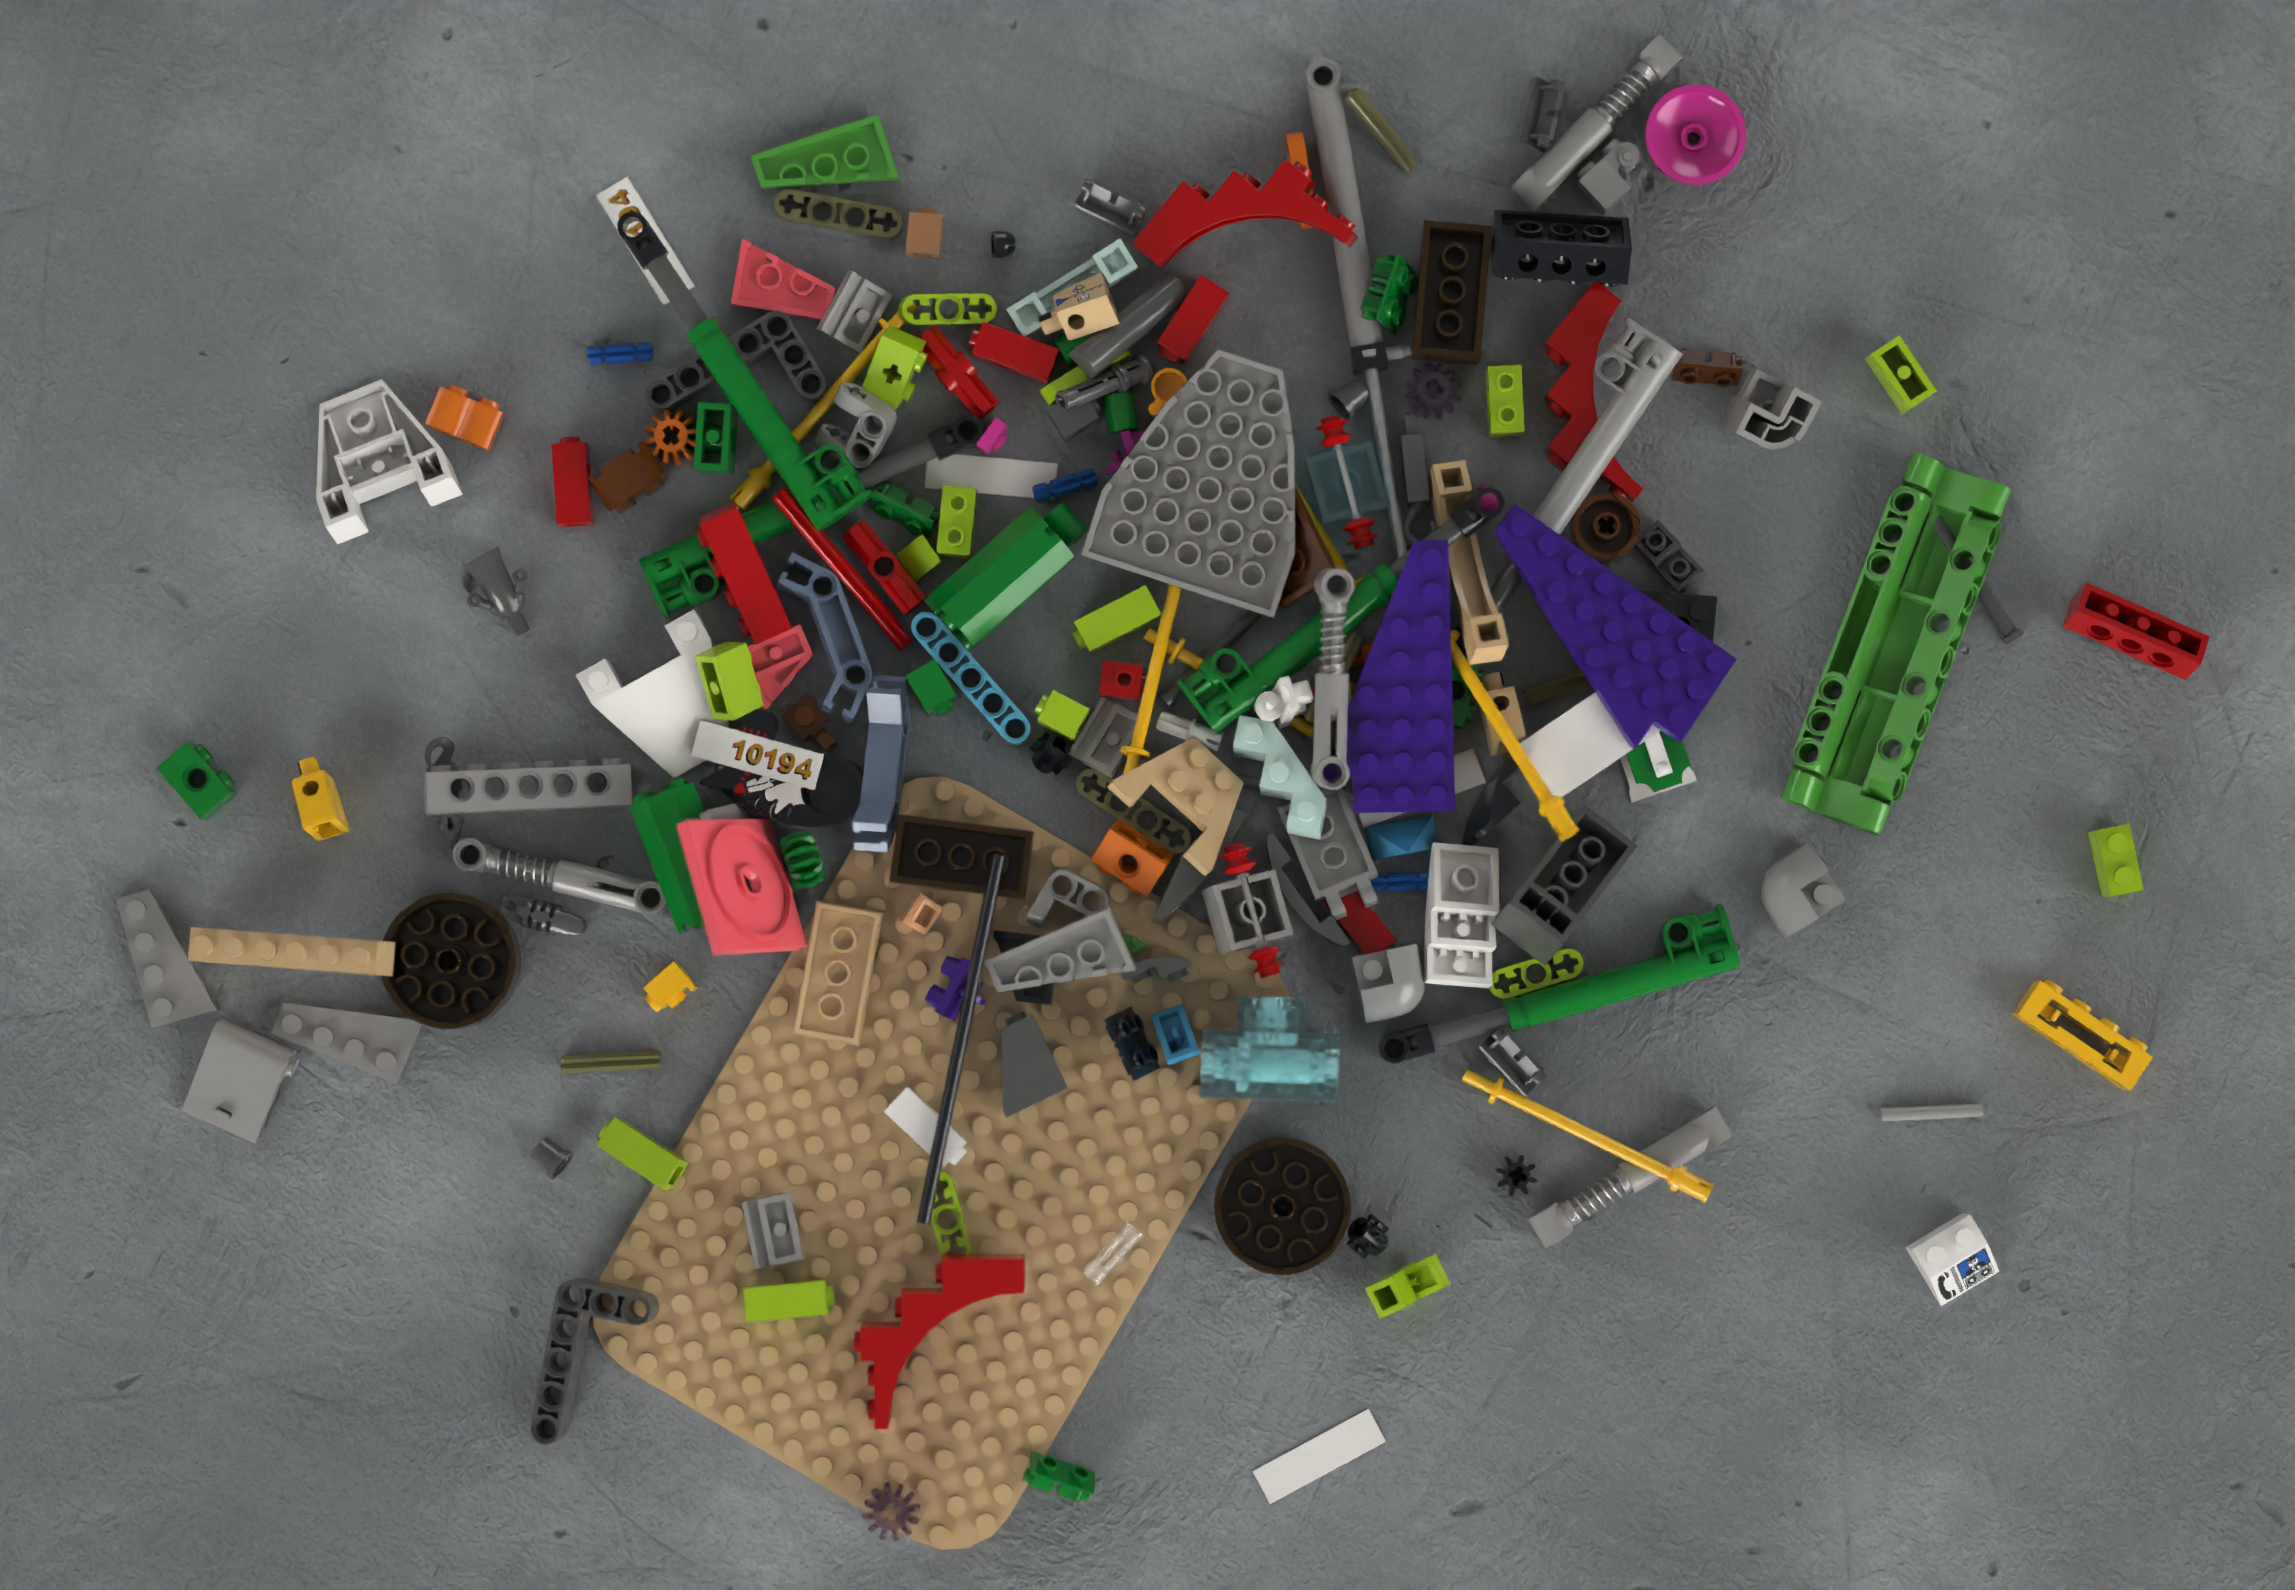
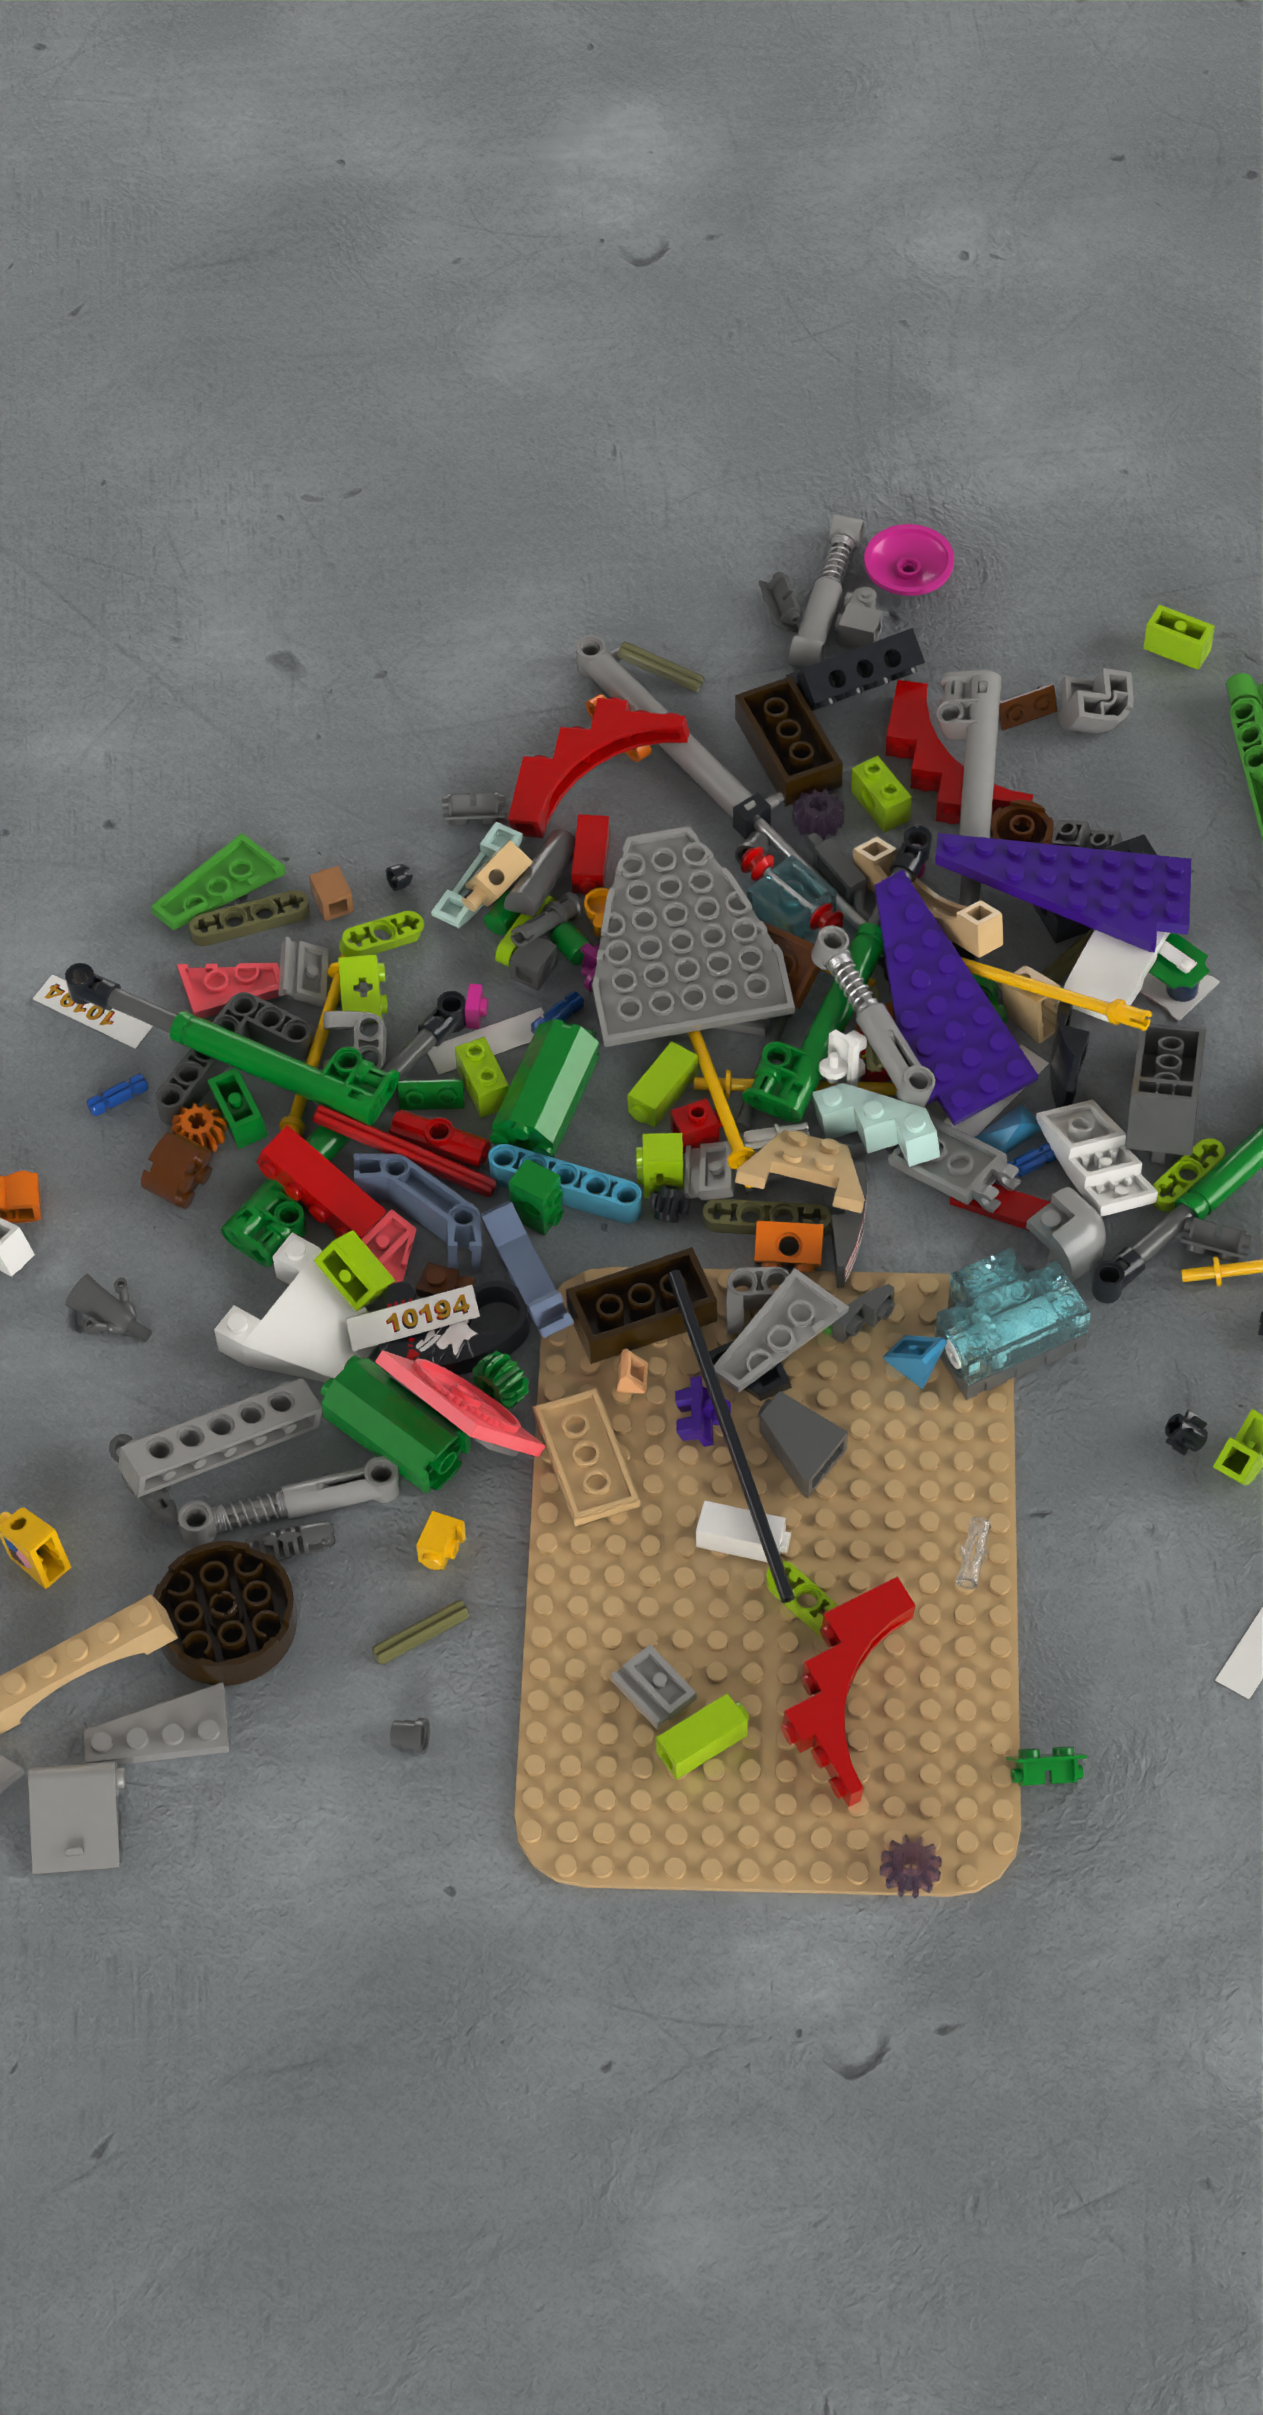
camera: 25 degrees left, 30 degrees down
(571, 483) = (129, 1202): red brick -> none
(574, 1346) = (521, 1879): dark grey beam -> none
(642, 1153) = (494, 1684): lime brick -> none
(919, 558) = (468, 1116): lime slope -> none
(957, 373) = (418, 976): red piece -> none
(1013, 352) = (456, 941): red brick -> none
(1127, 1033) = (871, 1372): black hinge -> none
(1248, 911) = (913, 1229): light grey brick -> none
(1289, 1241) = (1096, 1442): dark brown brick -> none
(1327, 928) = (989, 1223): dark grey slope -> none
(1401, 283) = (736, 756): green hinge -> none

